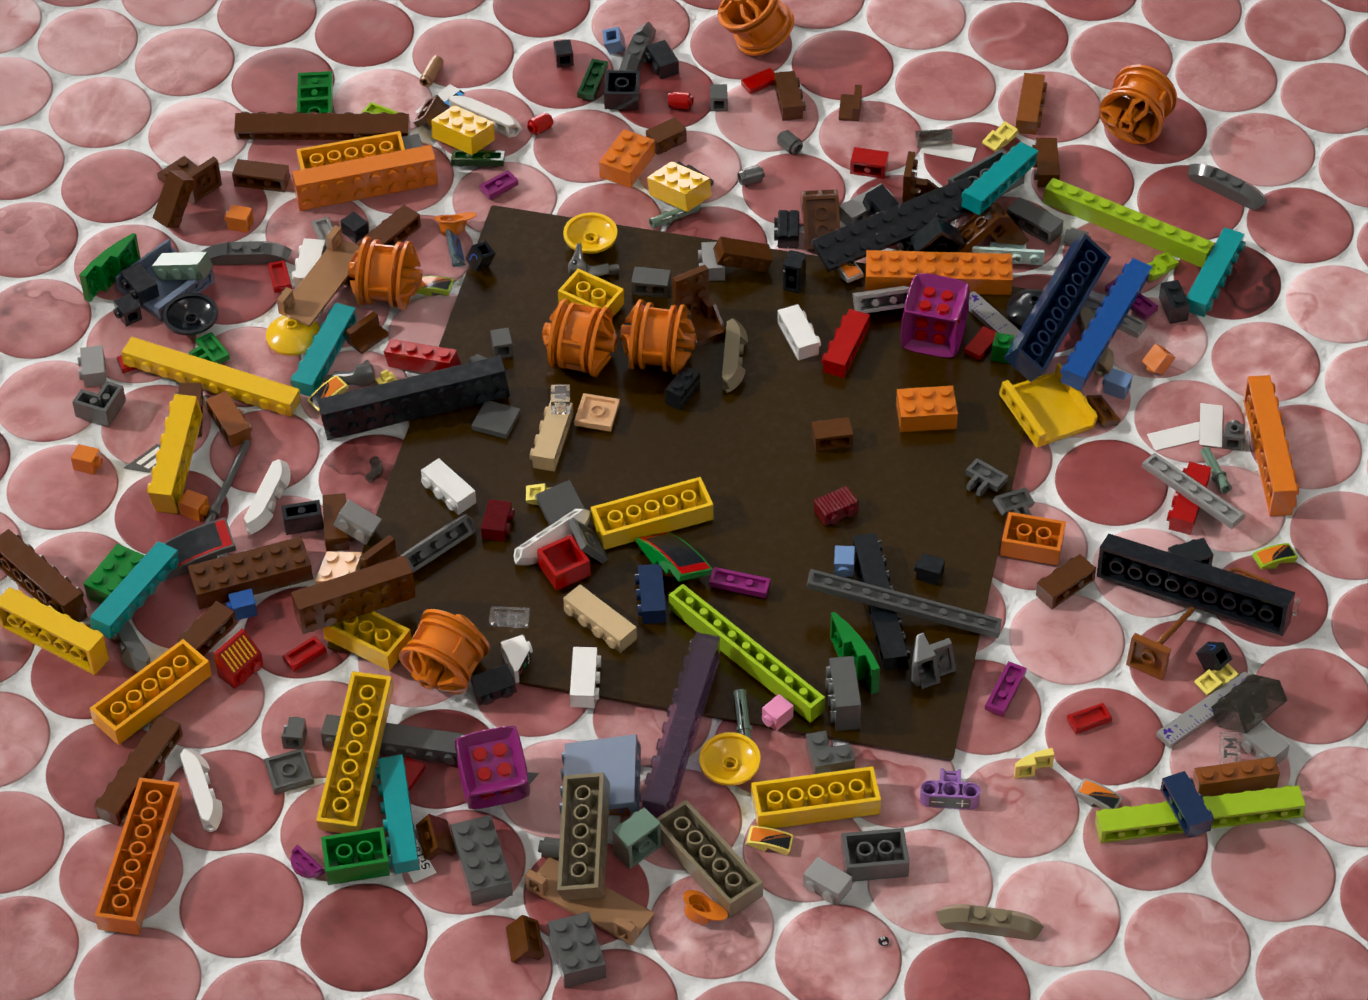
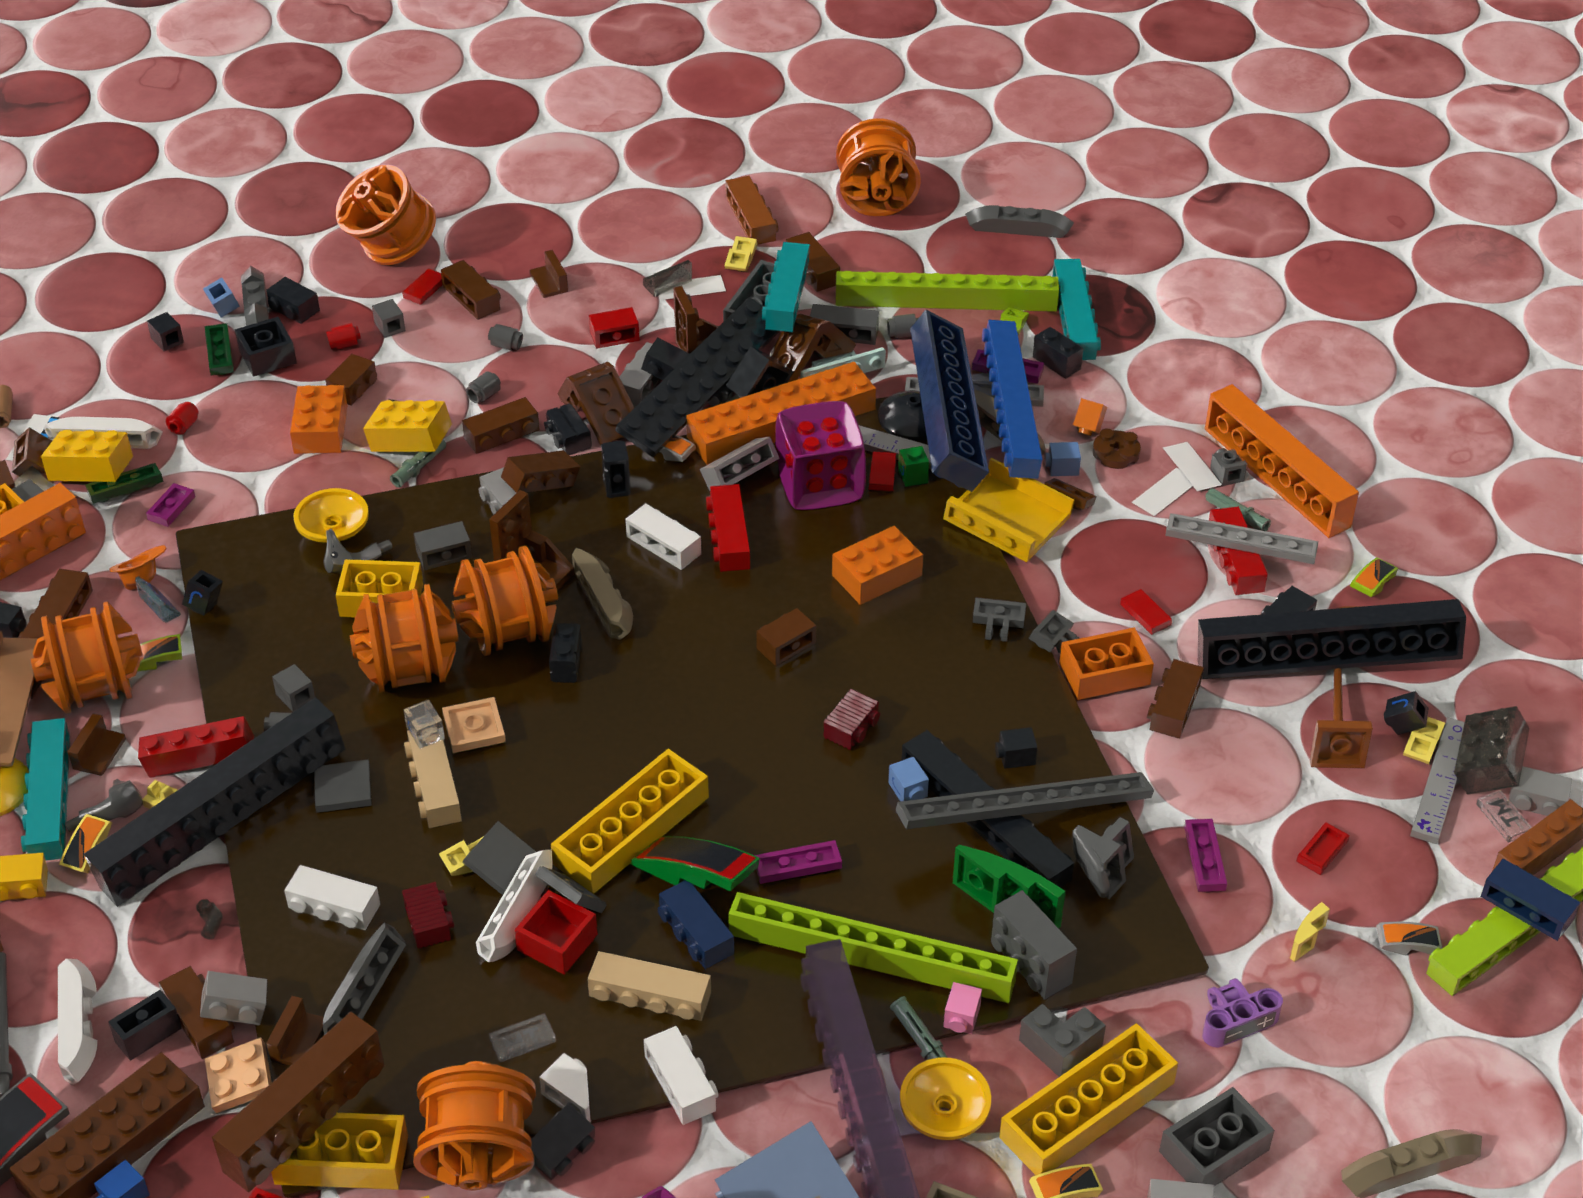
camera: 30 degrees left, 5 degrees down
(744, 208) = (500, 425): none -> reddish brown brick
(1094, 515) = (1146, 611): none -> red tile
(1168, 383) = (1126, 442): none -> reddish brown plate

